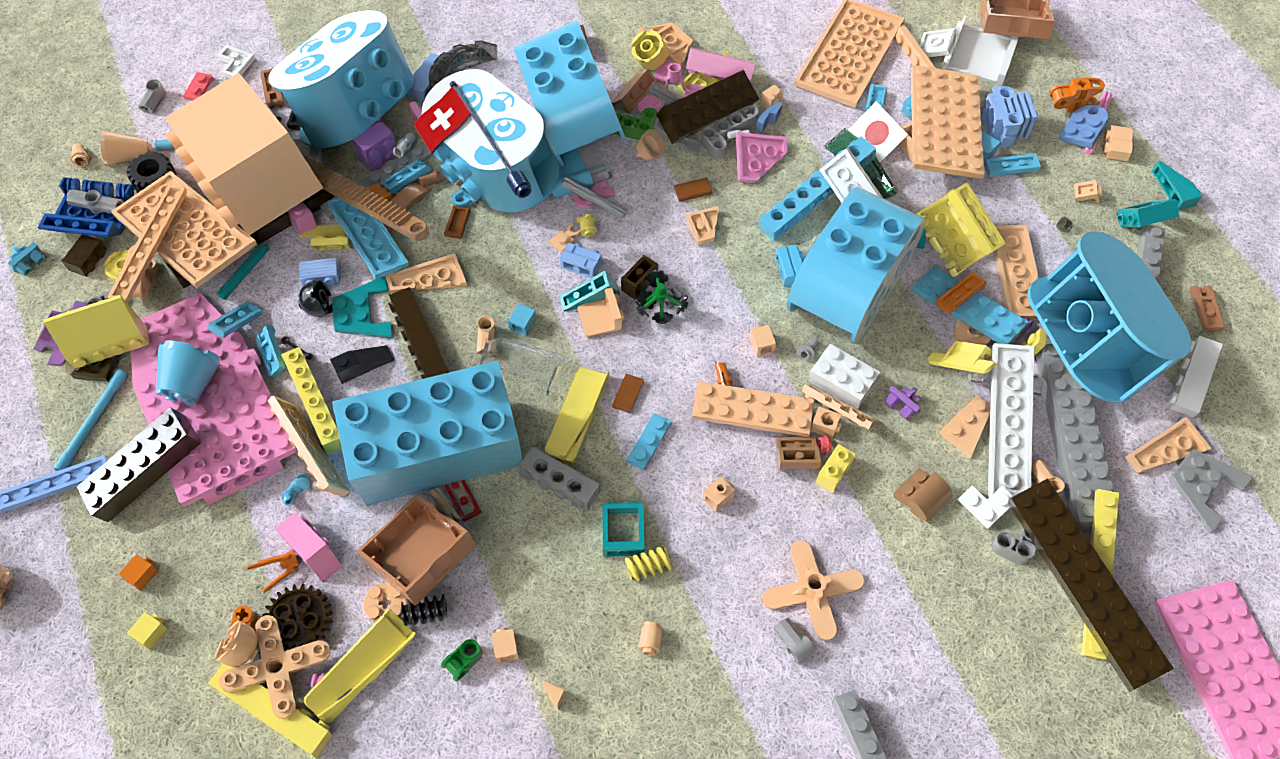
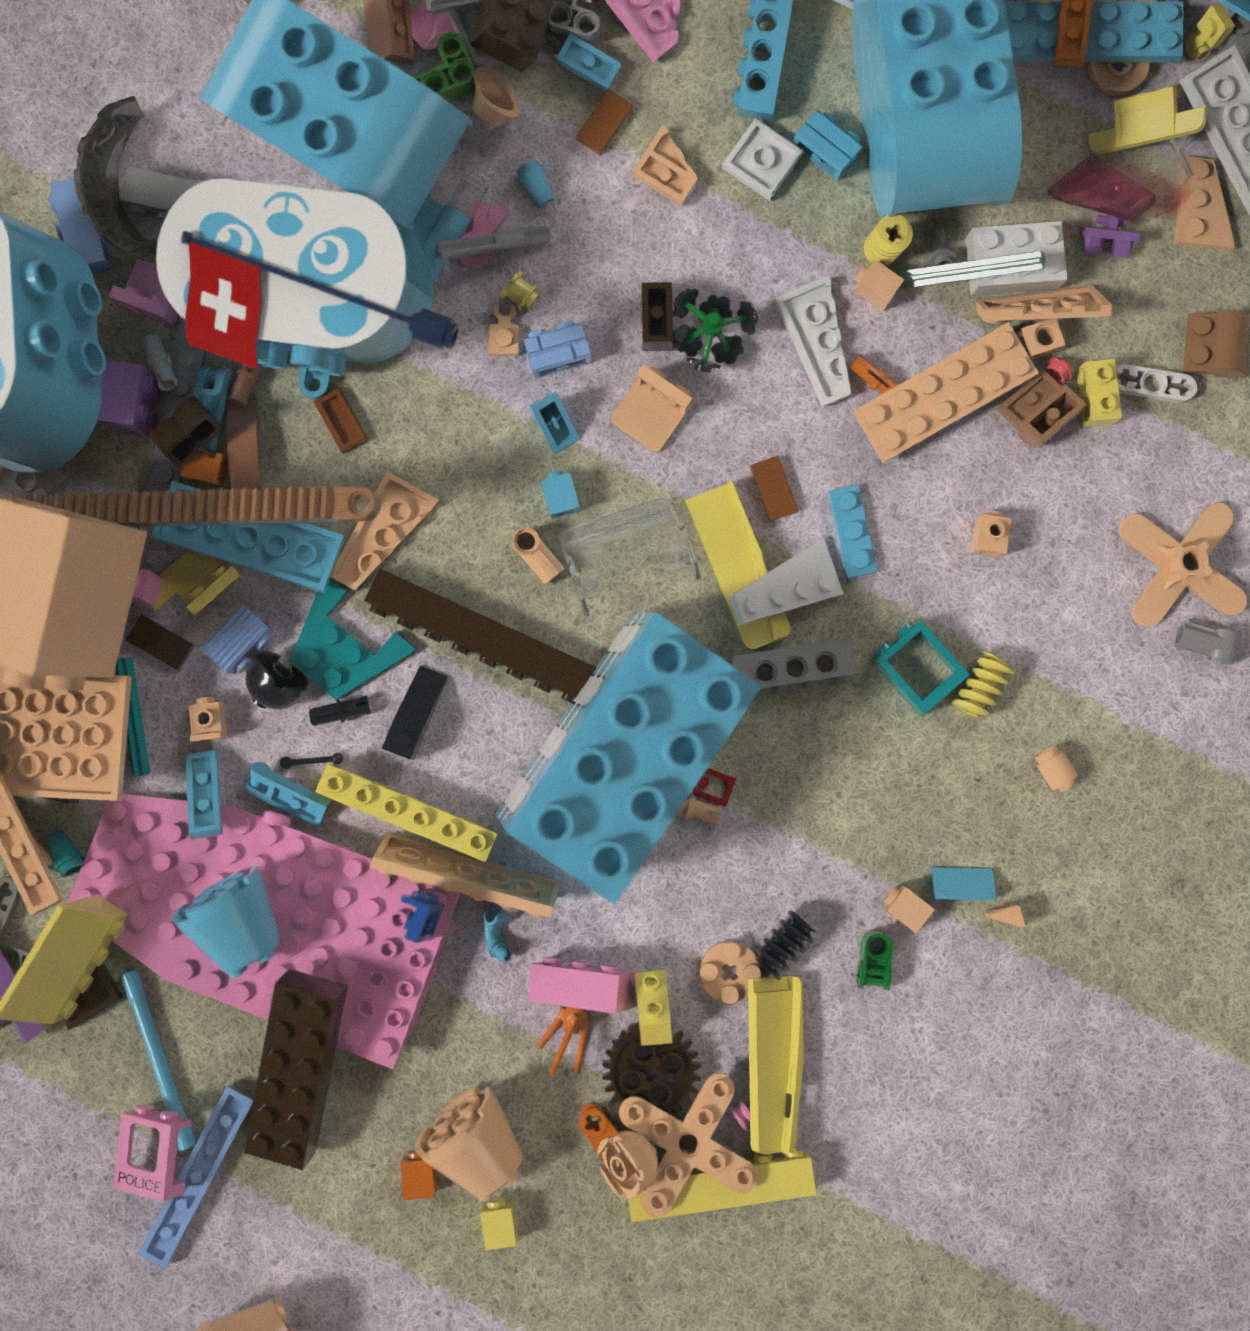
camera: 45 degrees left, 25 degrees up
(25, 465) = (145, 1182): none -> bright pink window
(153, 302) = (64, 854): none -> teal cone
(176, 573) = (472, 1144): none -> light nougat cone
(264, 435) = (422, 922): none -> blue bracket
(271, 295) = (215, 728): none -> light nougat brick
(287, 251) = (160, 642): none -> dark brown tile
(328, 581) = (653, 1007): none -> light yellow brick
(331, 335) = (339, 711): none -> black axle
(389, 172) = (186, 431): none -> dark brown brick
(416, 549) = (718, 890): nougat tile -> none
(546, 660) = (962, 883): none -> medium azure slope
(550, 286) = (554, 422): none -> medium azure slope
(588, 291) = (609, 390): teal slope -> none
(595, 438) = (792, 585): none -> white wing
(637, 188) = (535, 182): none -> medium azure cone
(706, 161) = (588, 62): none -> medium azure plate
(711, 341) = (814, 330): none -> white wing
(753, 251) = (762, 159): none -> white plate
(782, 320) = (888, 240): none -> light yellow piece
(813, 359) = (973, 269): none -> axle
(871, 480) = (1172, 395): none -> white beam
(915, 375) = (1102, 189): none -> clear pink wing

